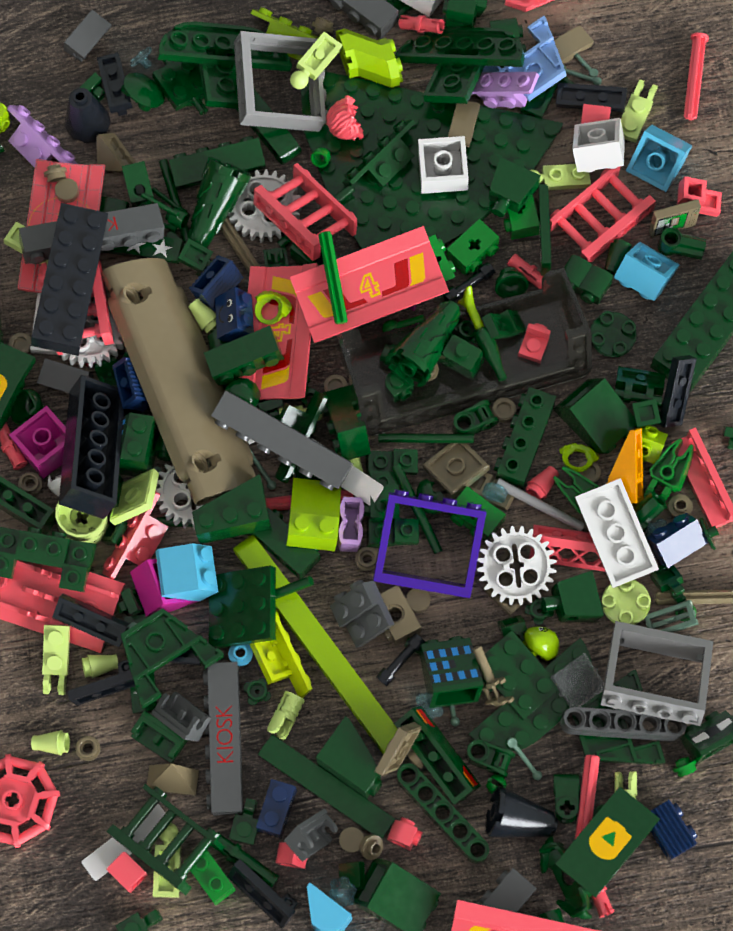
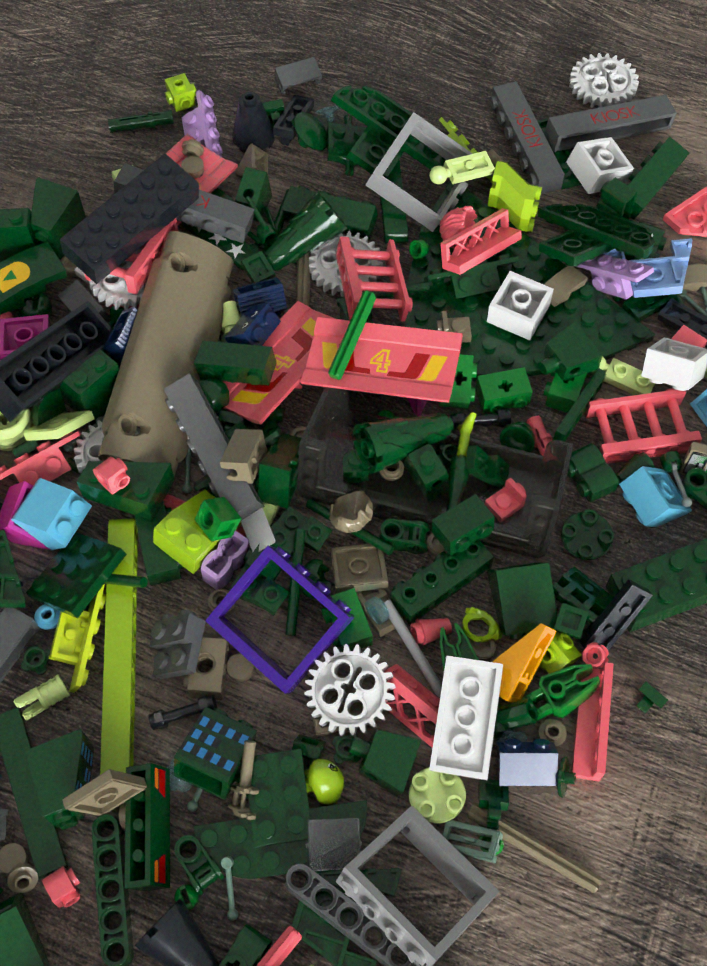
camera: 30 degrees right, 10 degrees down
(227, 511) = (112, 474): none -> coral plate
(266, 296) = (289, 328): lime piece -> none
(275, 257) = (327, 307): dark green tile -> none
(316, 432) = (244, 454): none -> dark tan hinge
(330, 496) = (217, 518): none -> green brick
(374, 125) = (479, 248): none -> coral fence
(399, 216) = (455, 325): none -> dark tan bracket
(421, 24) = (578, 195): coral pin -> none
(425, 426) = (351, 512): none -> dark tan hair
(520, 386) = (463, 525): none -> dark green brick
(642, 234) = (671, 463): none -> hinge
(673, 433) = (590, 650): none -> coral plate

